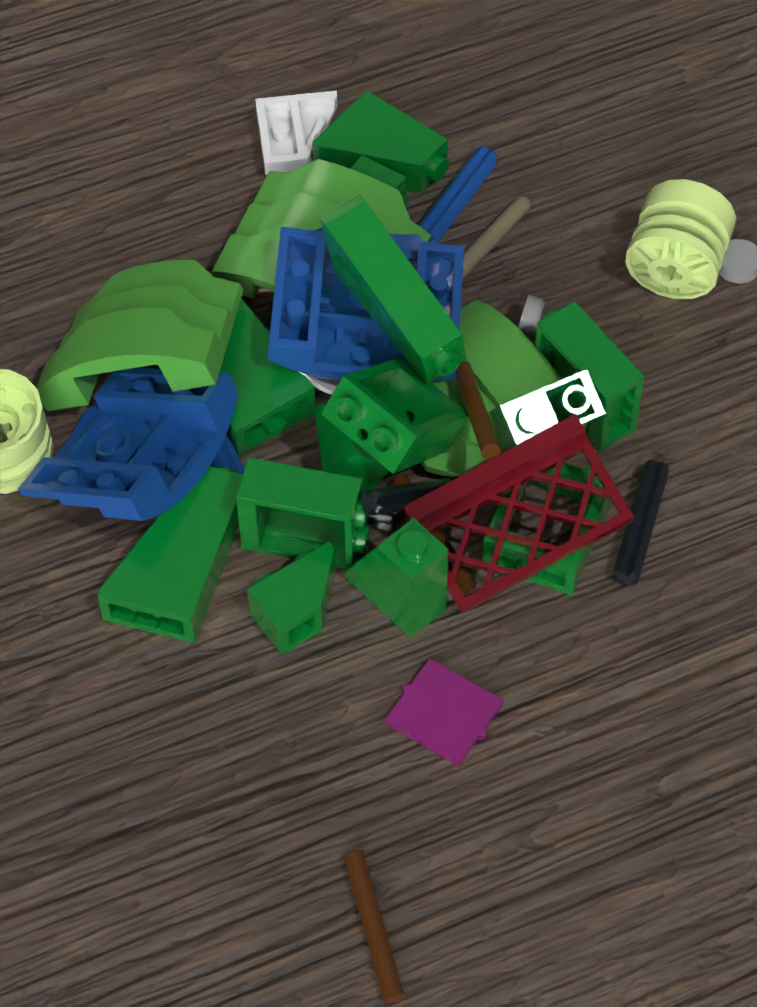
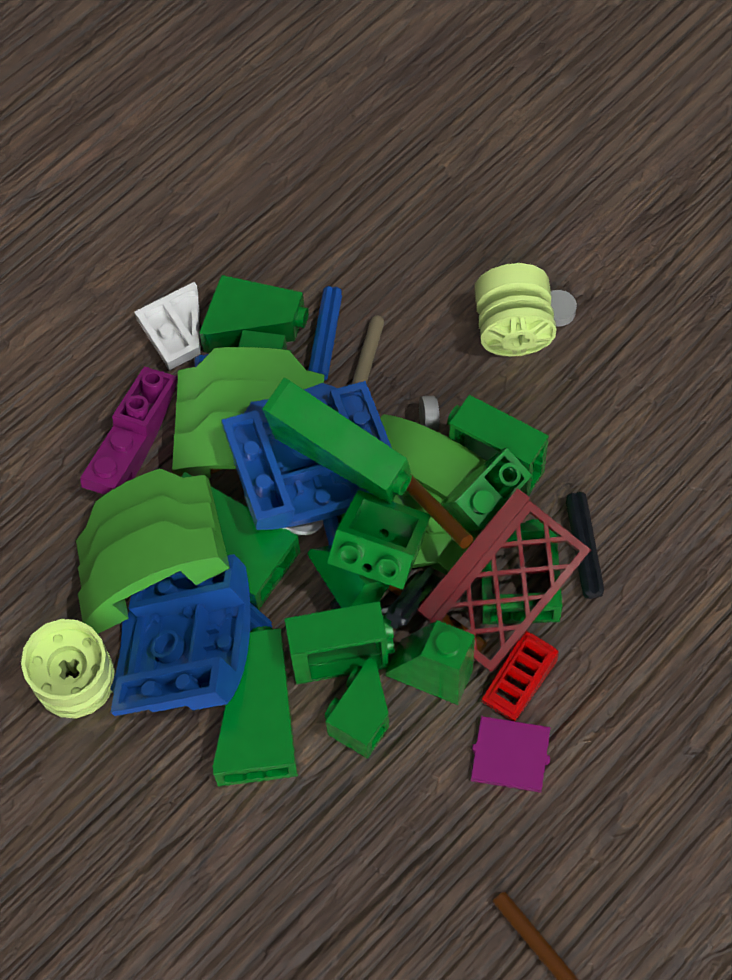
camera: 20 degrees left, 5 degrees up
(194, 221) = (133, 432): none -> magenta slope
(502, 609) = (537, 648): none -> red slope

